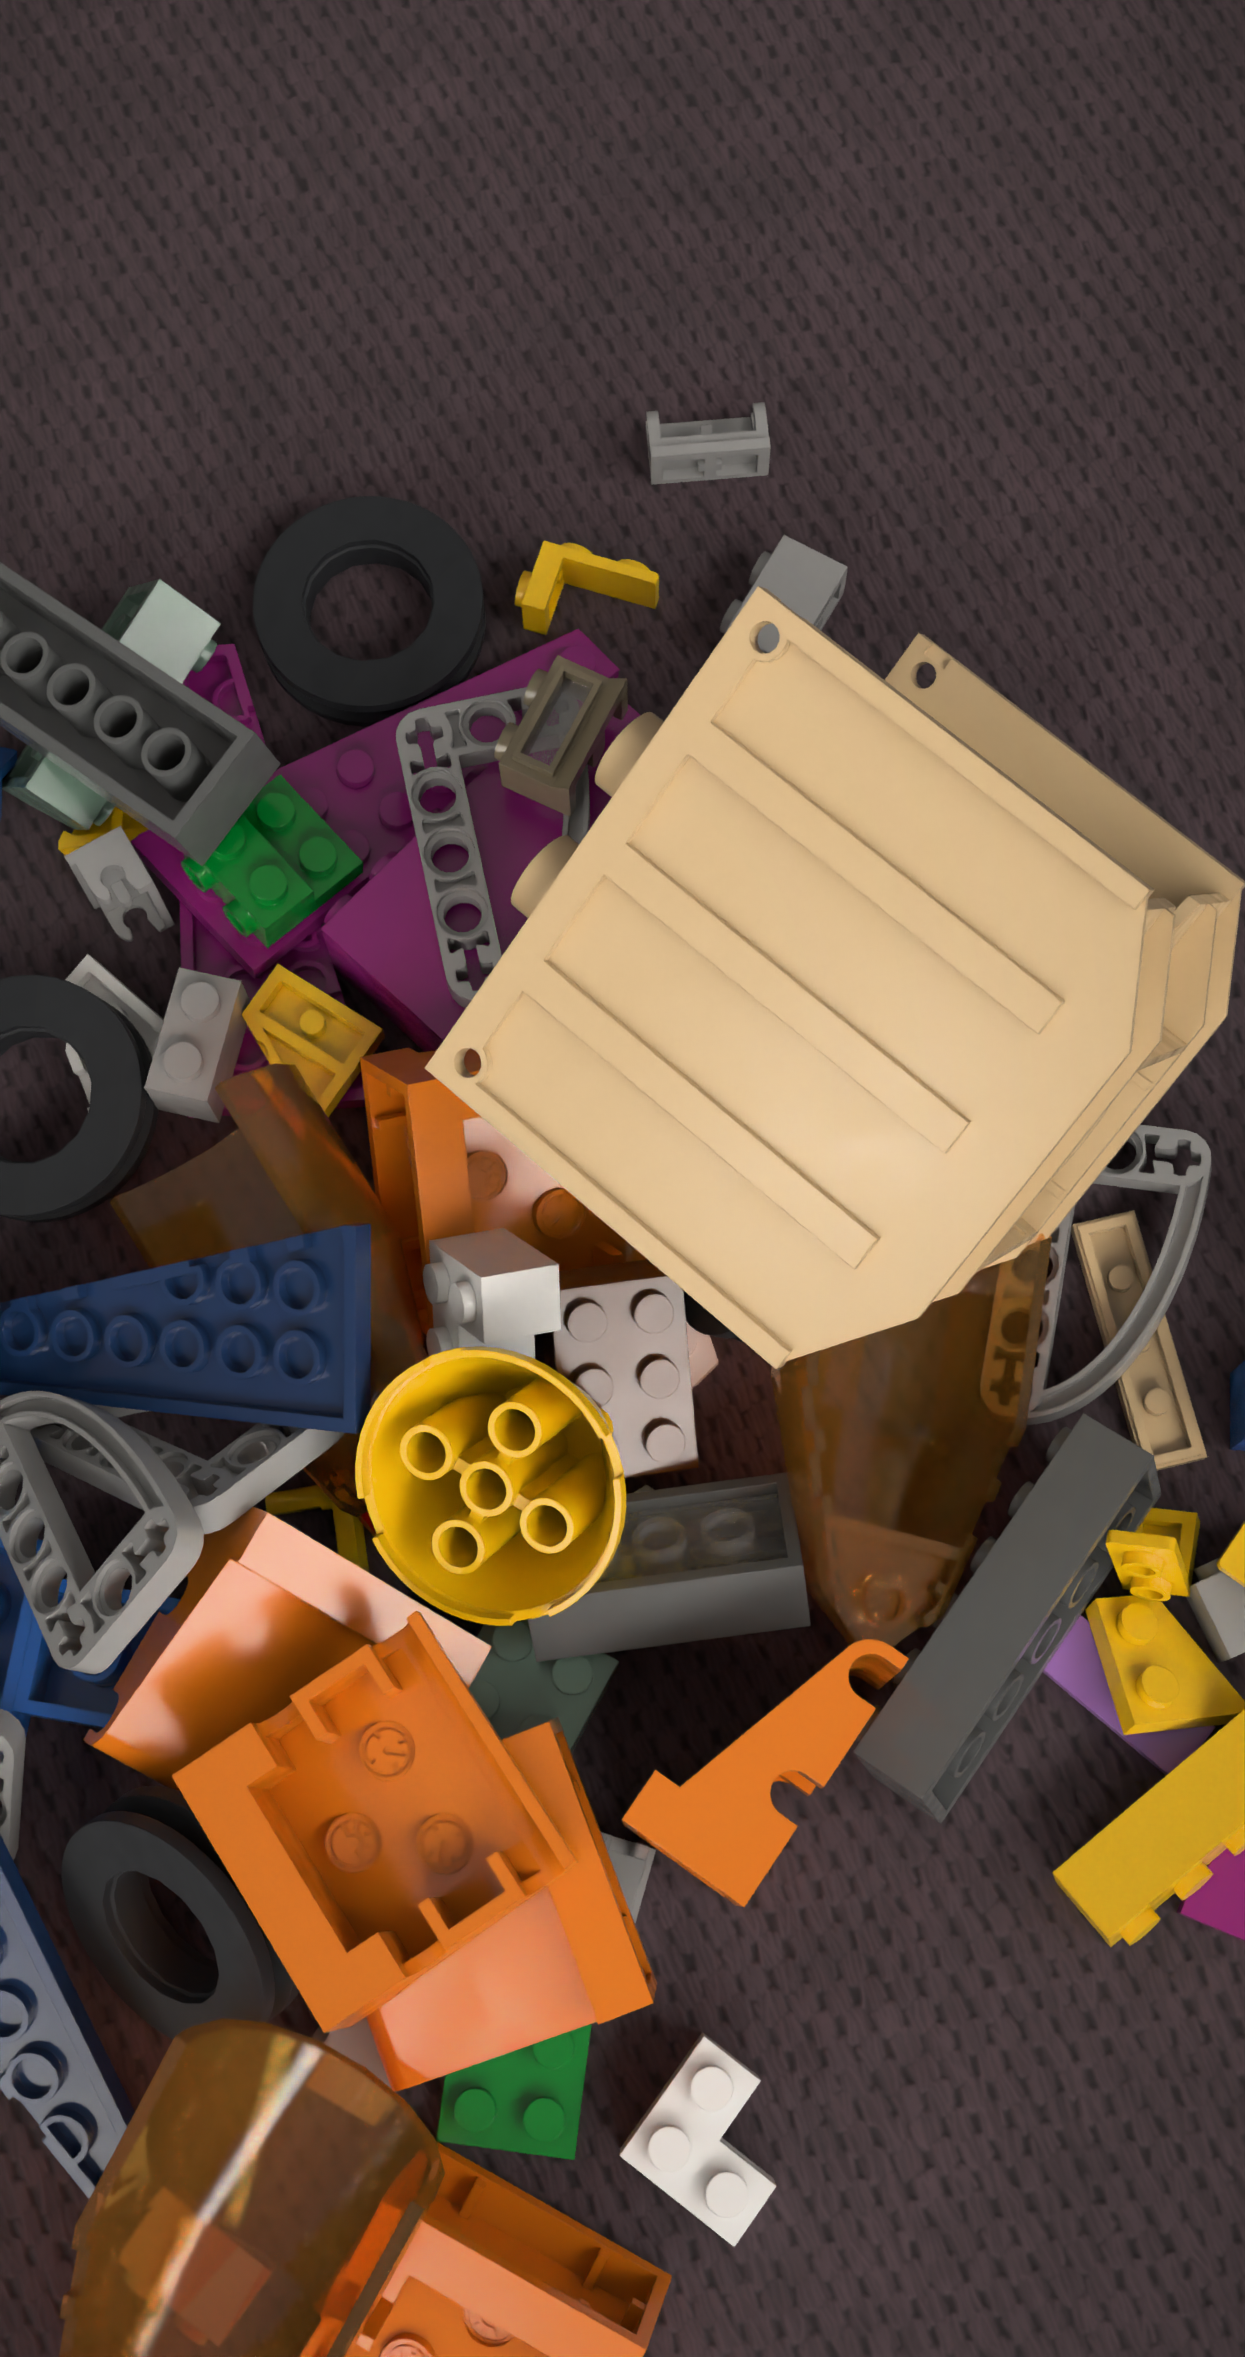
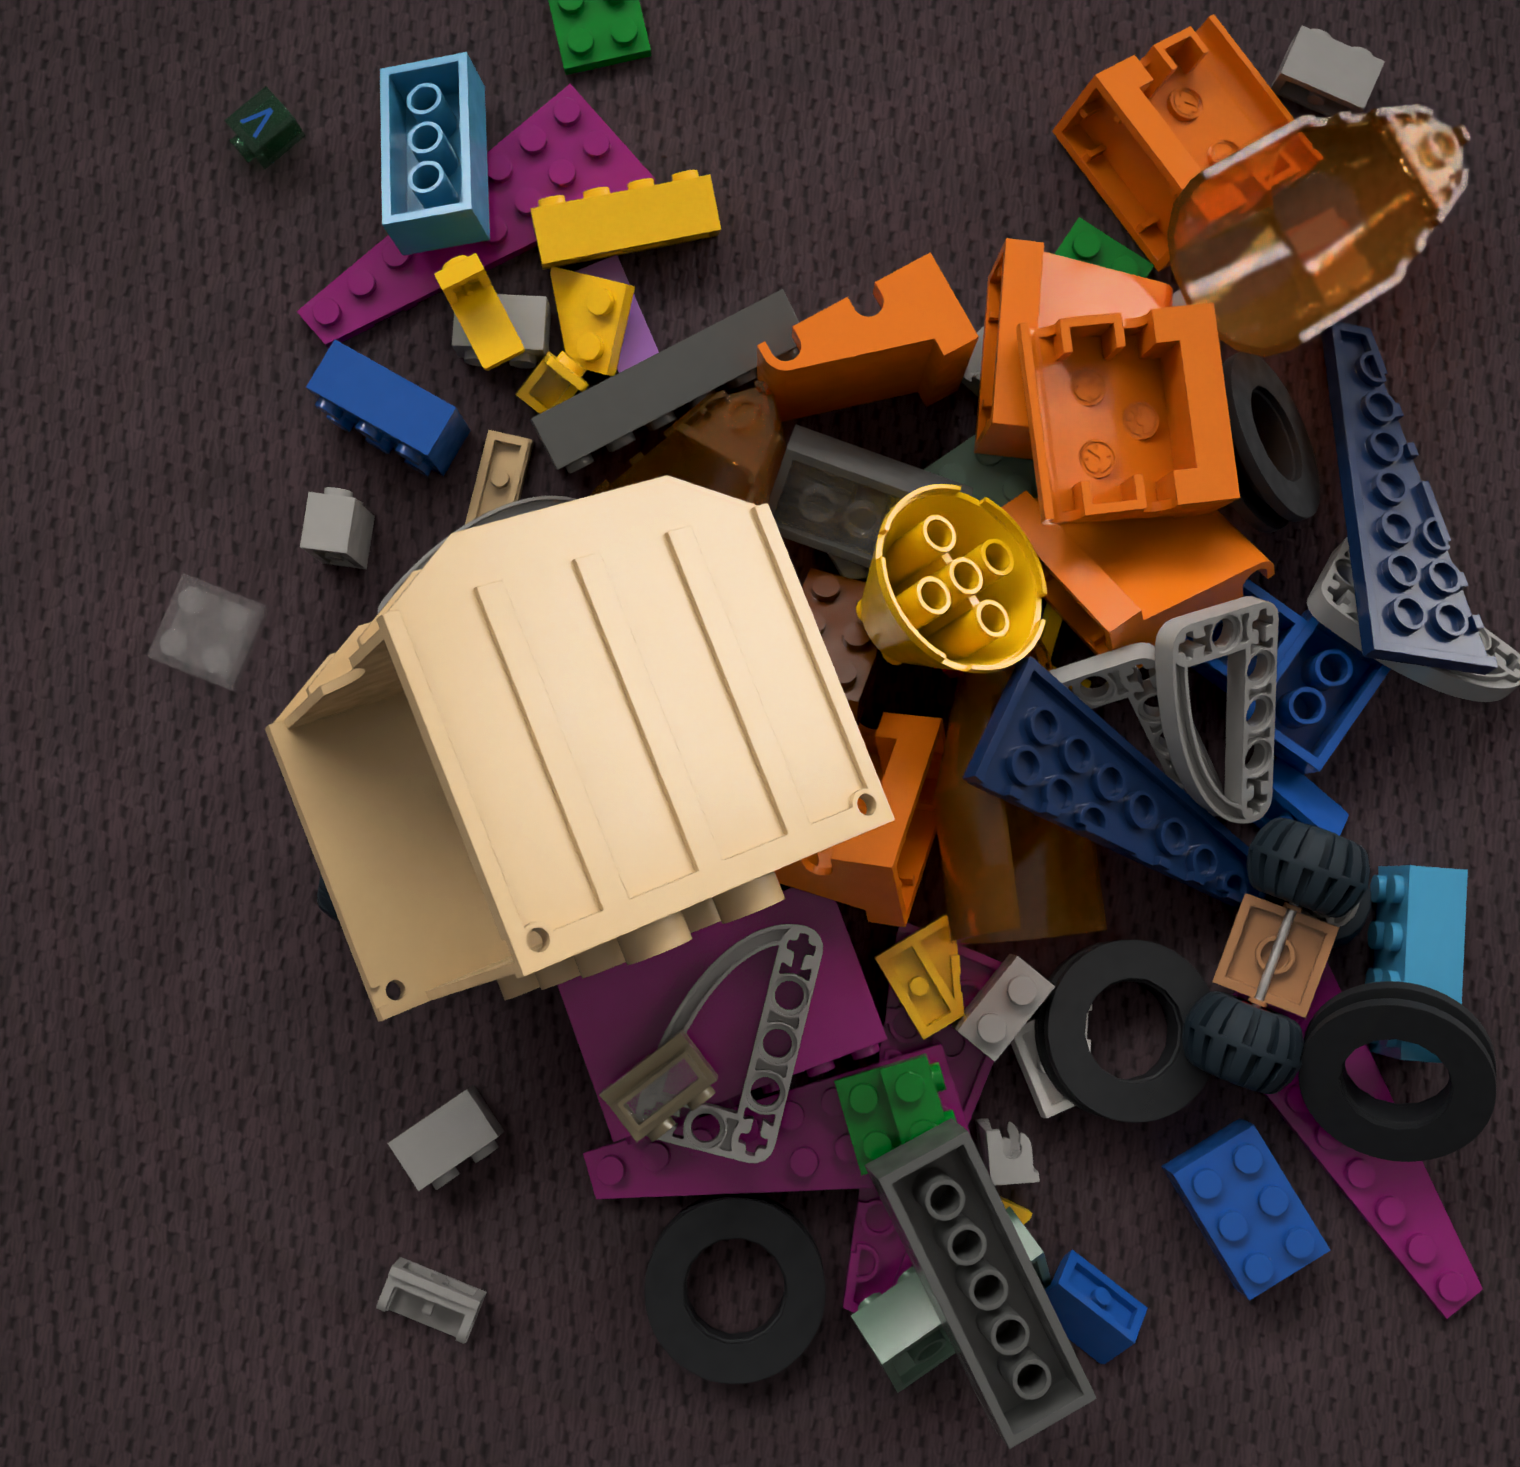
camera: 155 degrees left, 10 degrees up
(490, 1292) = (900, 714): white brick -> none
(577, 566) = (606, 1243): yellow bracket -> none
(683, 2146) = (1010, 190): white brick -> none

